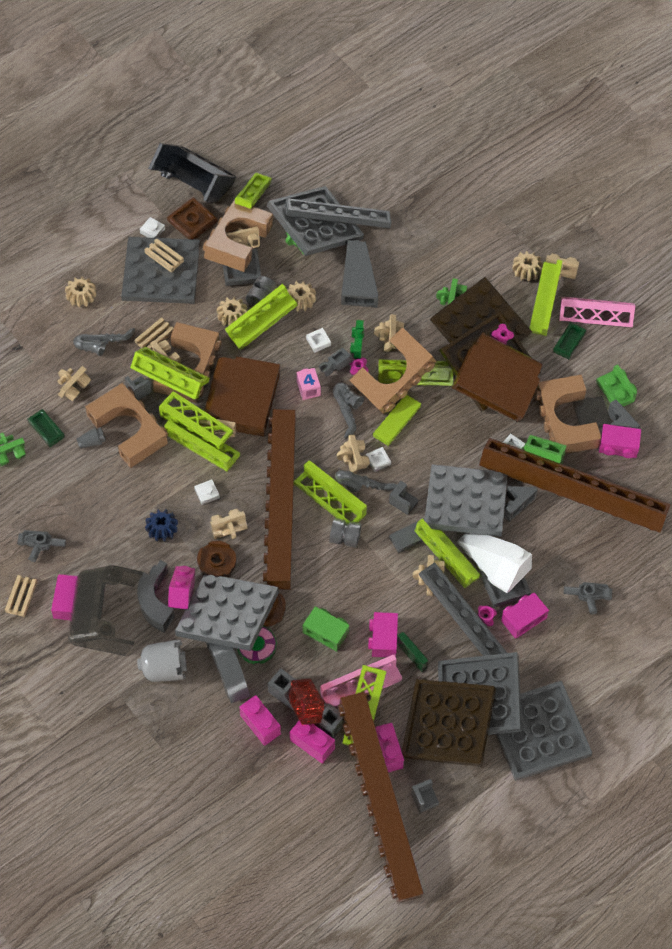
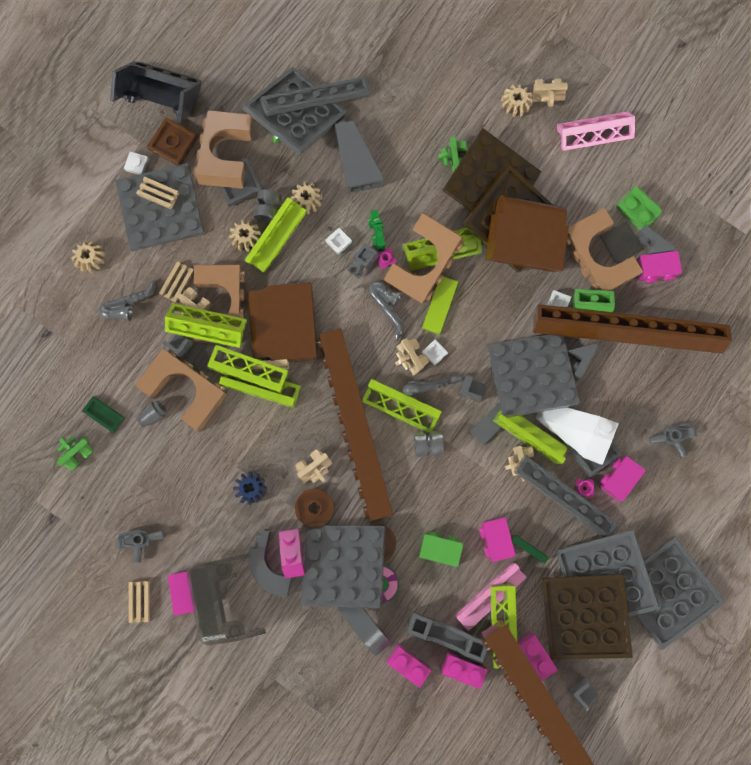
camera: 15 degrees left, 20 degrees up
(68, 389) = (111, 368): tan hips -> none
(163, 661) = (299, 635): light grey cylinder -> none
(207, 492) = (281, 437): white plate -> none
(247, 237) = (231, 149): tan hips -> none
(253, 190) = (223, 93): lime tile -> none
(306, 701) = (451, 645): clear red brick -> none
(308, 383) = (343, 292): bright pink brick -> none
(387, 330) = (404, 214): tan hips -> none
(496, 334) = (514, 191): dark pink plate -> none
(545, 297) = (546, 131): lime fence -> none
(569, 340) = (578, 170): dark green tile -> none

